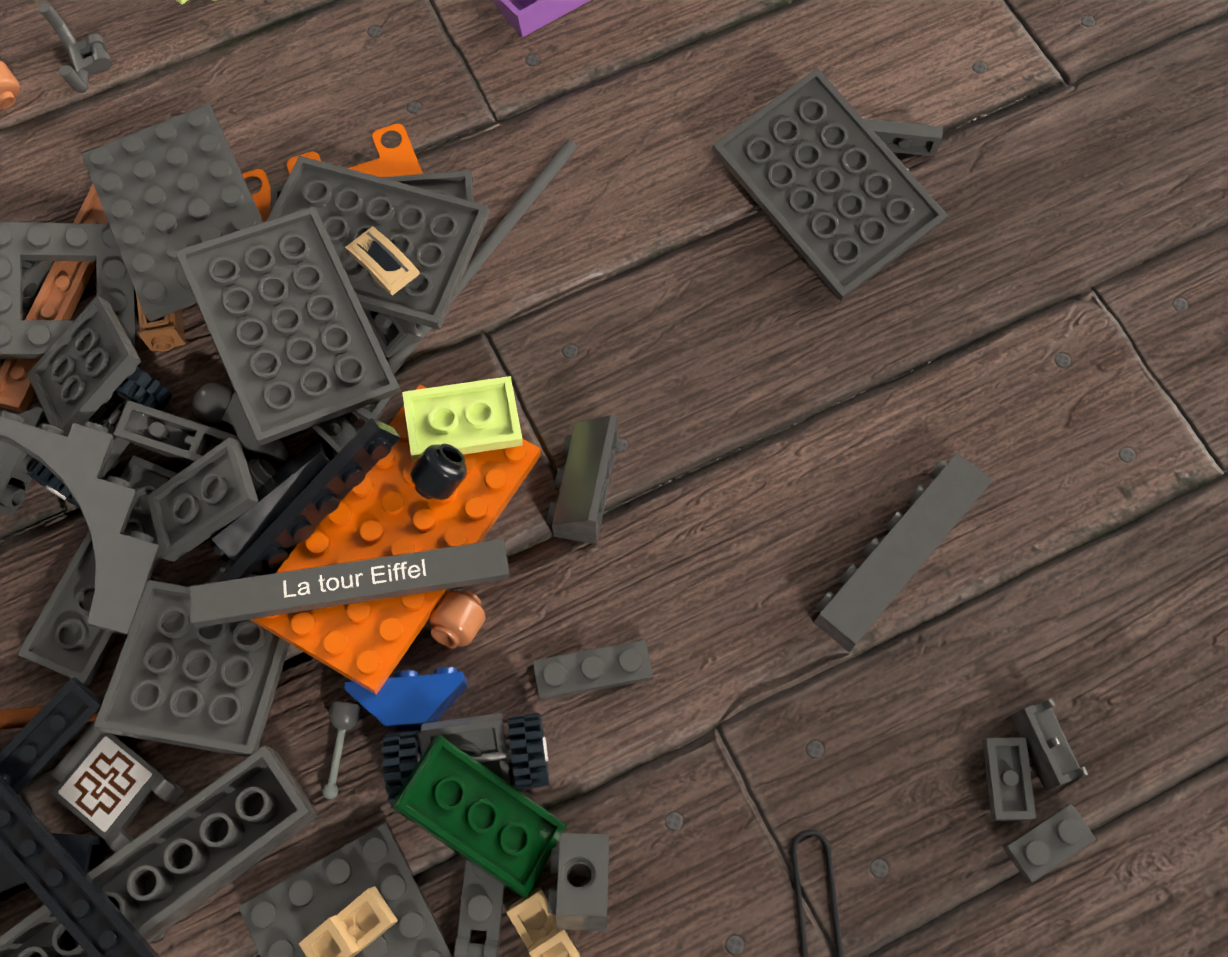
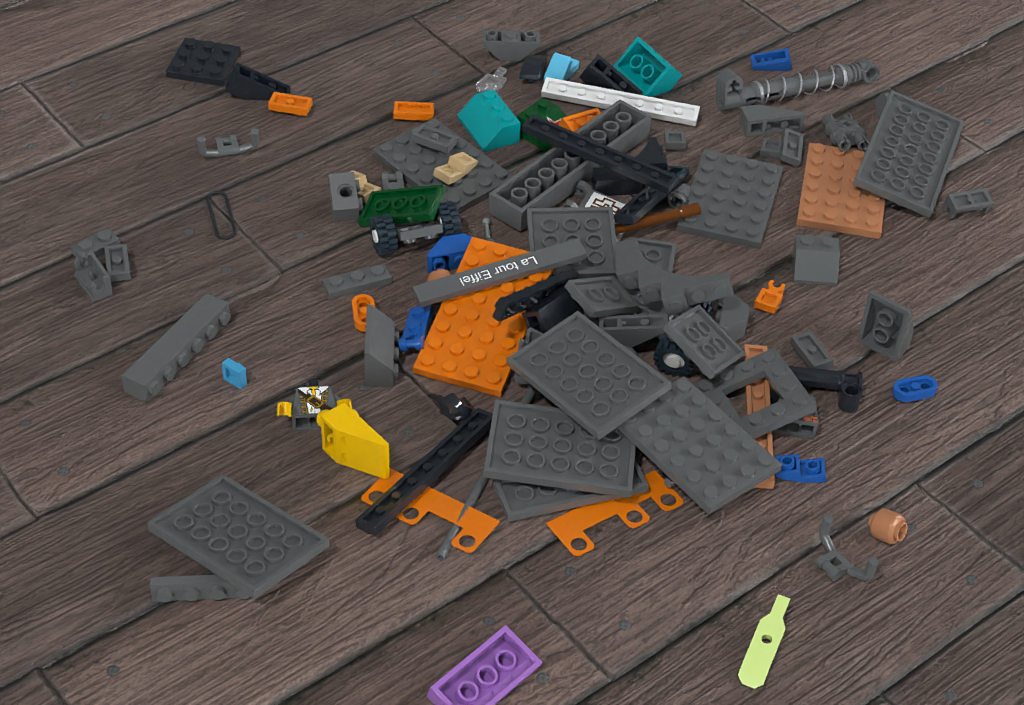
camera: 165 degrees right, 25 degrees down
(51, 194) = (801, 470): none -> blue slope
(382, 260) = (544, 420): tan slope -> none
(438, 471) = (467, 322): black head -> none
(464, 415) = (464, 361): yellowish green plate -> none
(492, 360) = (452, 406): none -> black piece
(520, 523) = (416, 328): none -> blue plate
(555, 263) = (424, 472): none -> black plate
(564, 225) = (473, 521): none -> orange piece
(594, 584) = (359, 310): none -> orange plate
(660, 303) = (353, 441): none -> yellow slope
(701, 390) = (308, 403): none -> torso
(815, 480) = (234, 373): none -> dark azure plate

